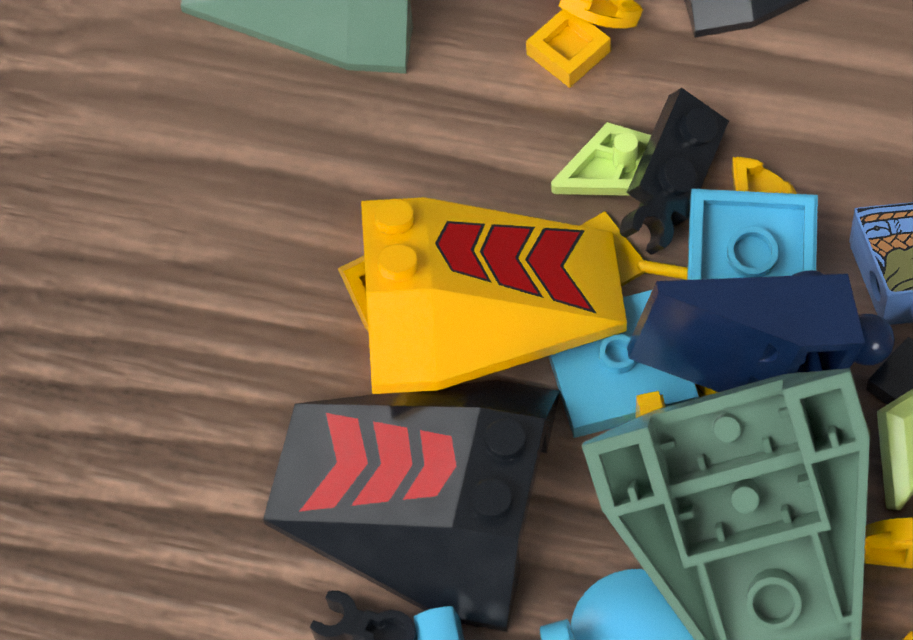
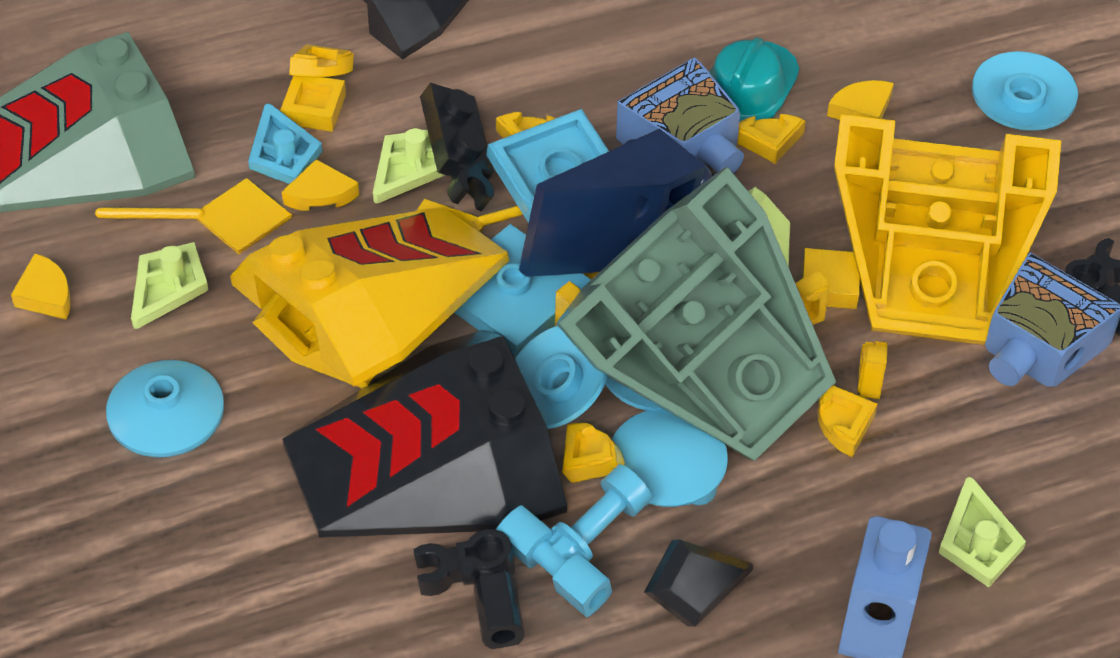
camera: 40 degrees left, 10 degrees down
(188, 126) = (43, 289): none -> yellow tile
(221, 332) = (167, 424): none -> medium azure dish
(298, 178) = (166, 282): none -> yellowish green piece
(413, 138) = (236, 217): none -> yellow piece
(502, 84) = (282, 147): none -> medium azure piece
(508, 148) = (320, 187): none -> yellow tile
(563, 585) = (589, 453): none -> yellow tile
(564, 496) = (559, 377): none -> medium azure dish

